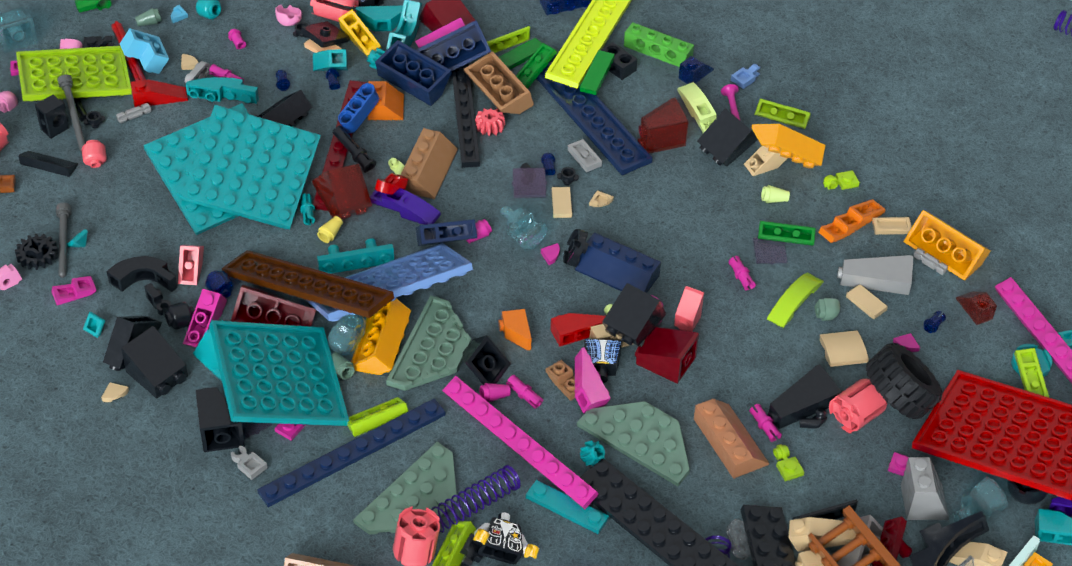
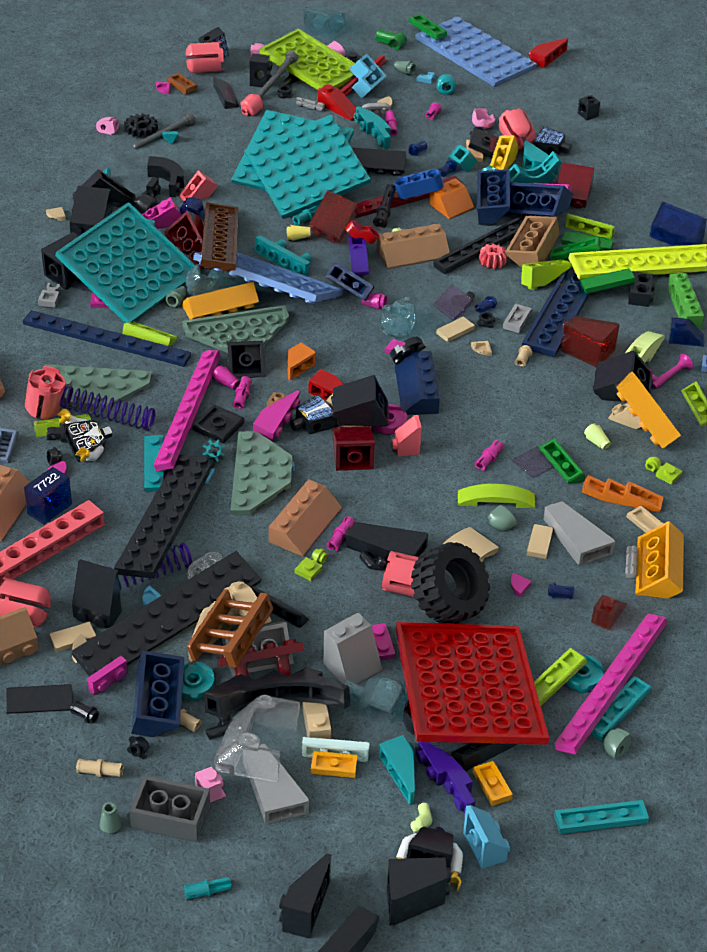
camera: 55 degrees right, 5 degrees down
(78, 289) = (129, 157): dark pink slope -> none
(544, 103) = (542, 273): none -> lime slope
(554, 430) = (218, 423): none -> black plate
(634, 177) = (524, 353): none -> tan pin

